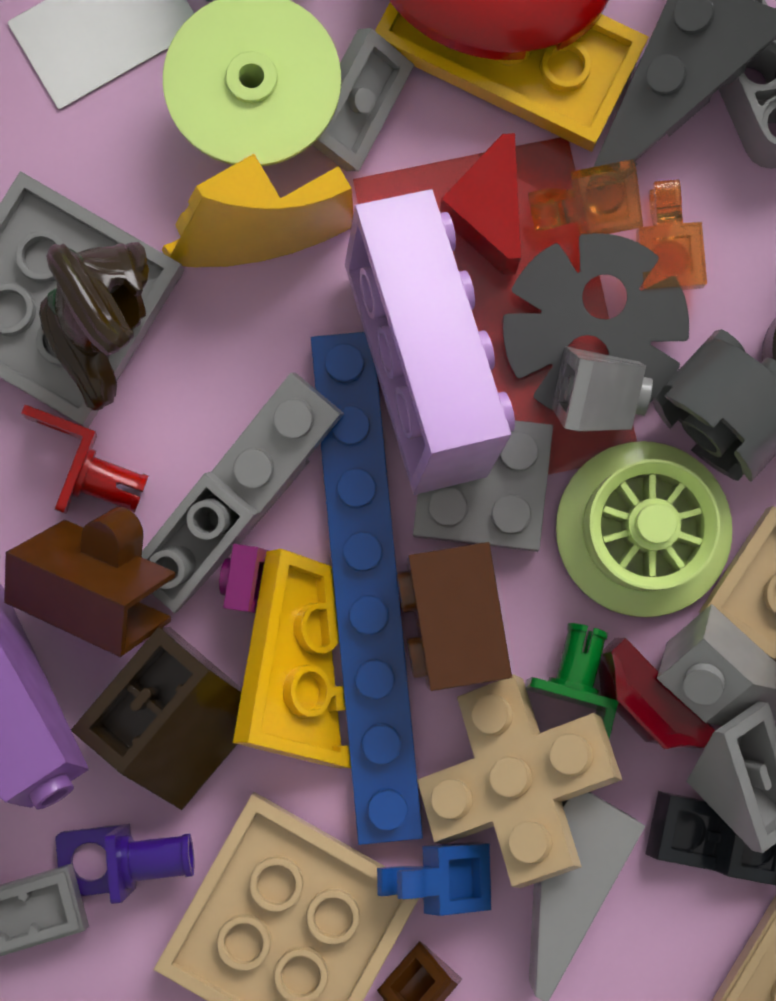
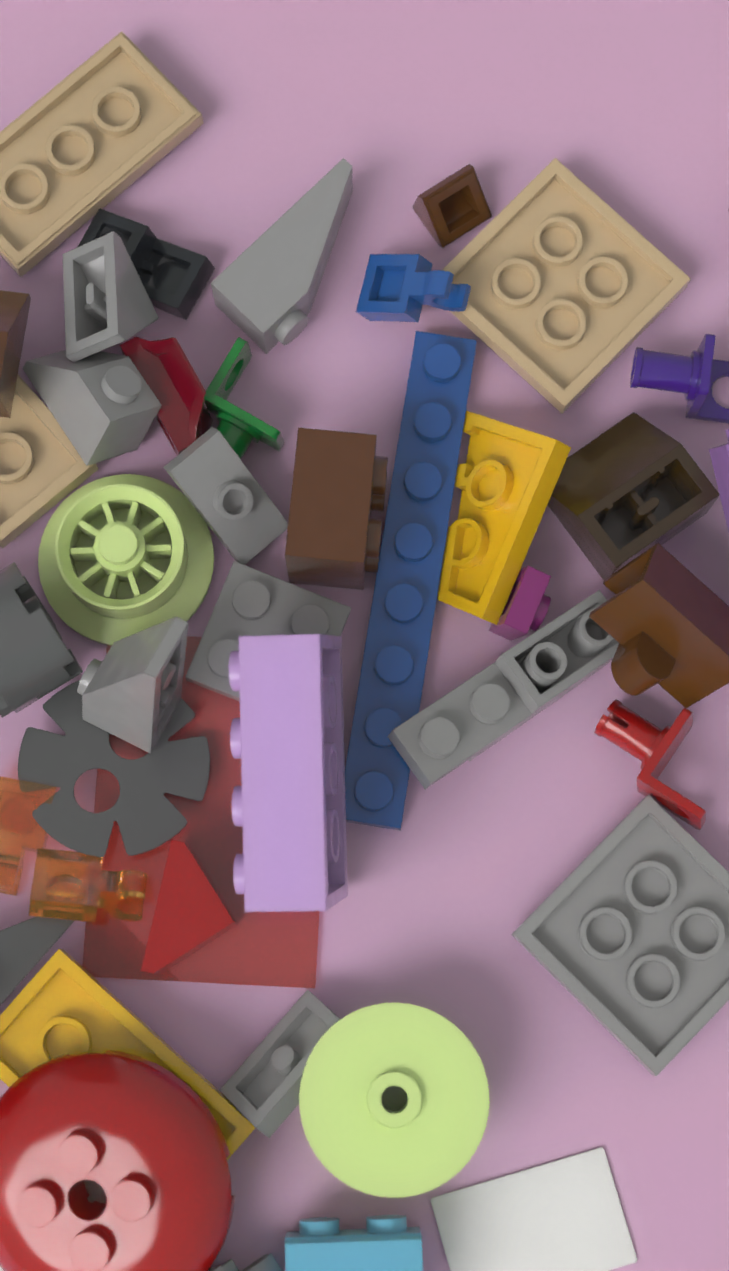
camera: 165 degrees left, 5 degrees down
(94, 312) = (618, 891): dark brown hair -> none
(245, 221) = (430, 955): yellow slope -> none
(519, 781) = (314, 349): tan plate -> none
(565, 609) = (227, 496): none -> light grey plate

